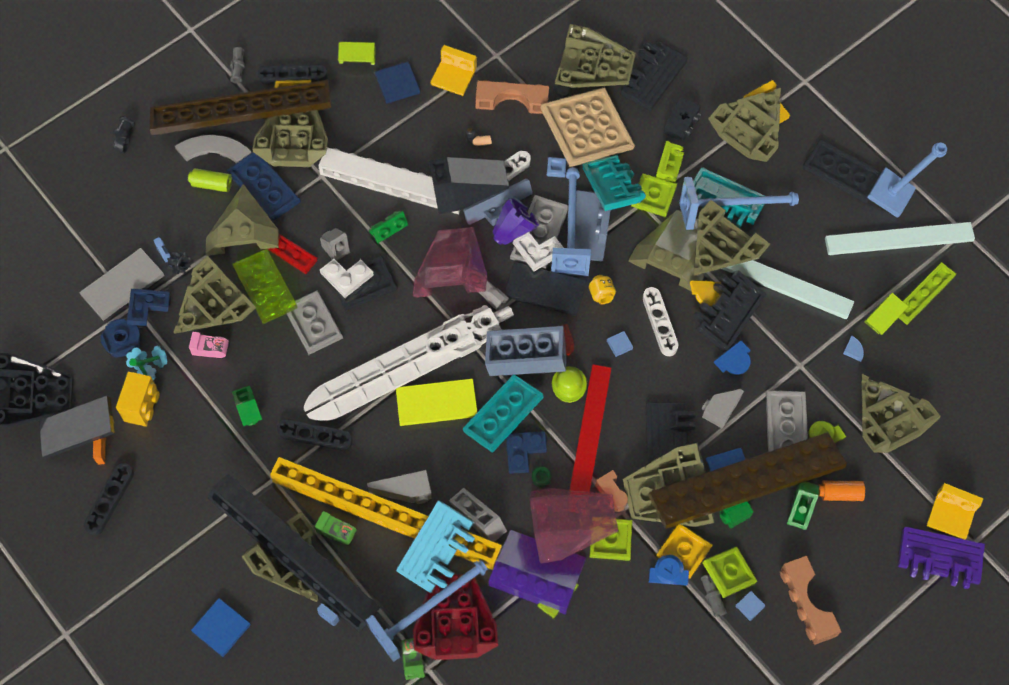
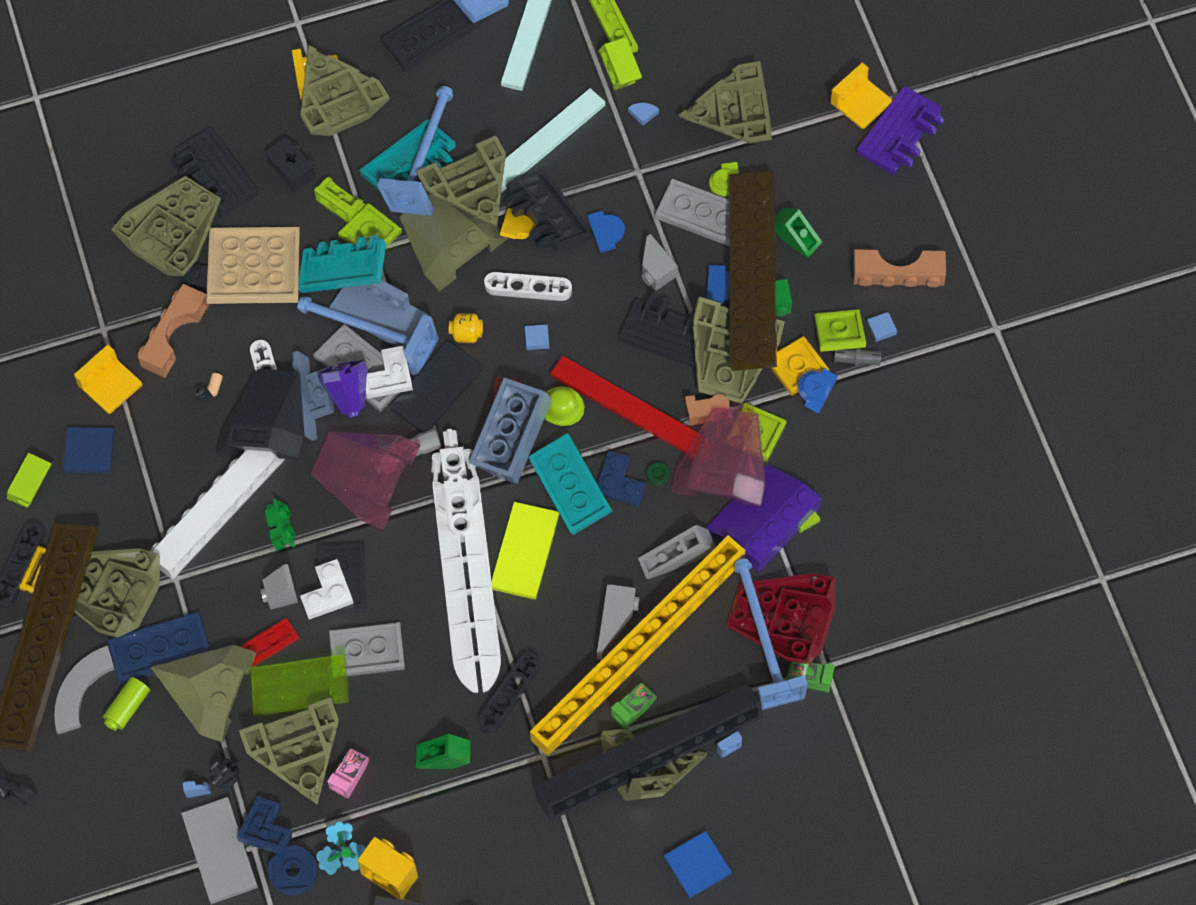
camera: 65 degrees left, 0 degrees up
(434, 545) = (701, 602): medium azure hinge -> none
(556, 167) = (286, 319): medium blue tile -> none
(842, 490) = (796, 187): orange brick -> none

